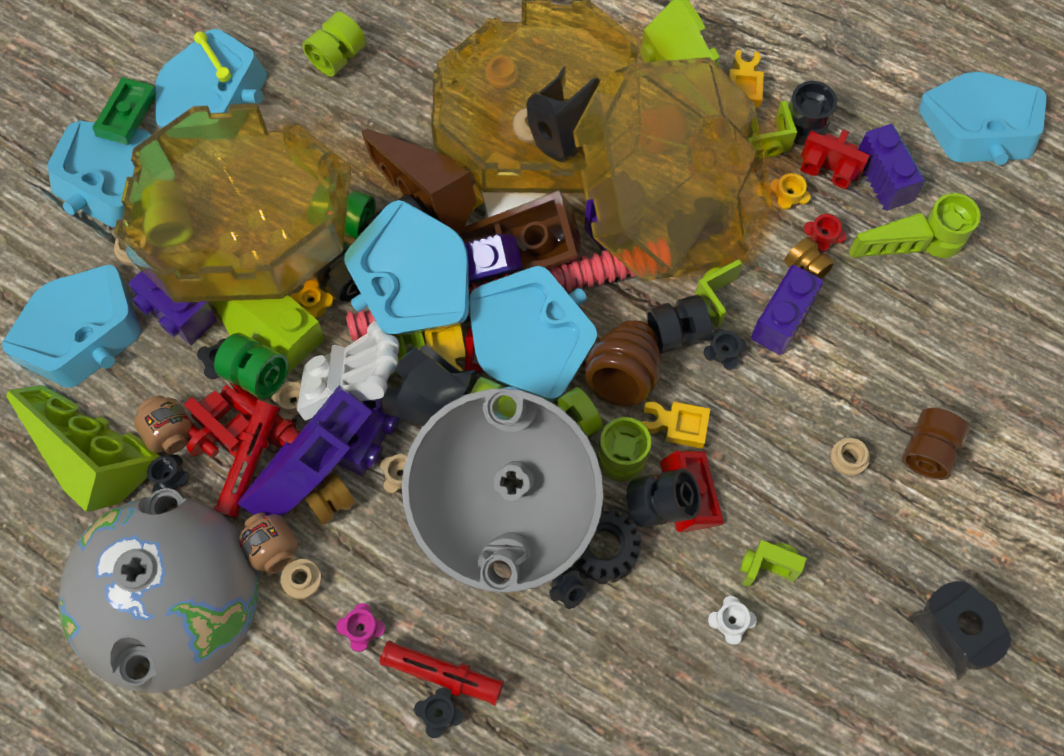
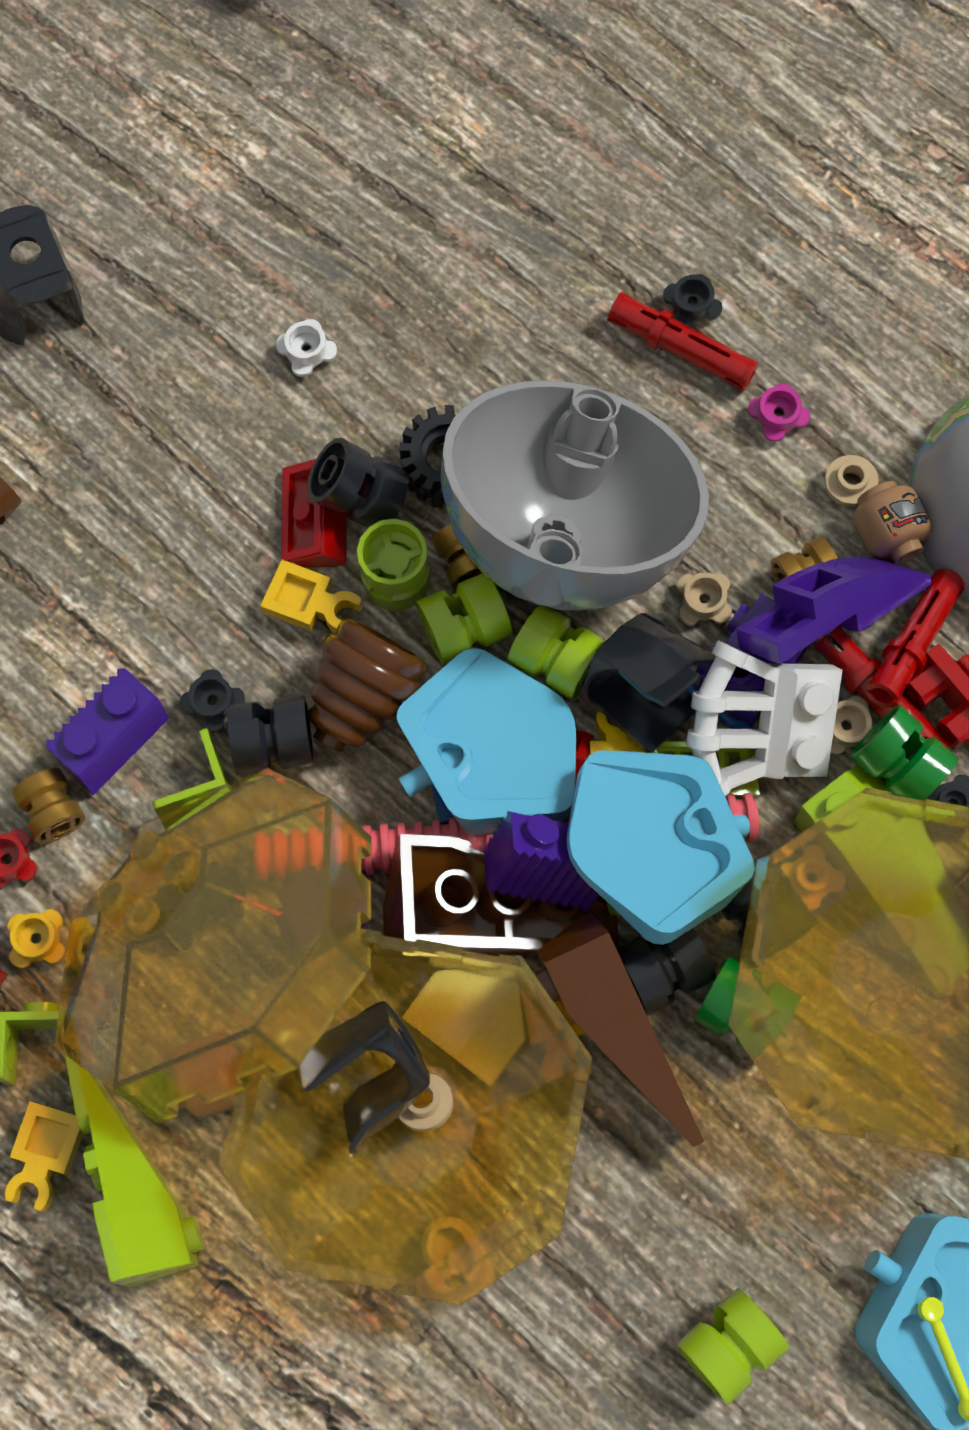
camera: 165 degrees left, 5 degrees up
(776, 559) = (230, 401): lime bracket -> none
(854, 447) = (81, 509): tan plate -> none

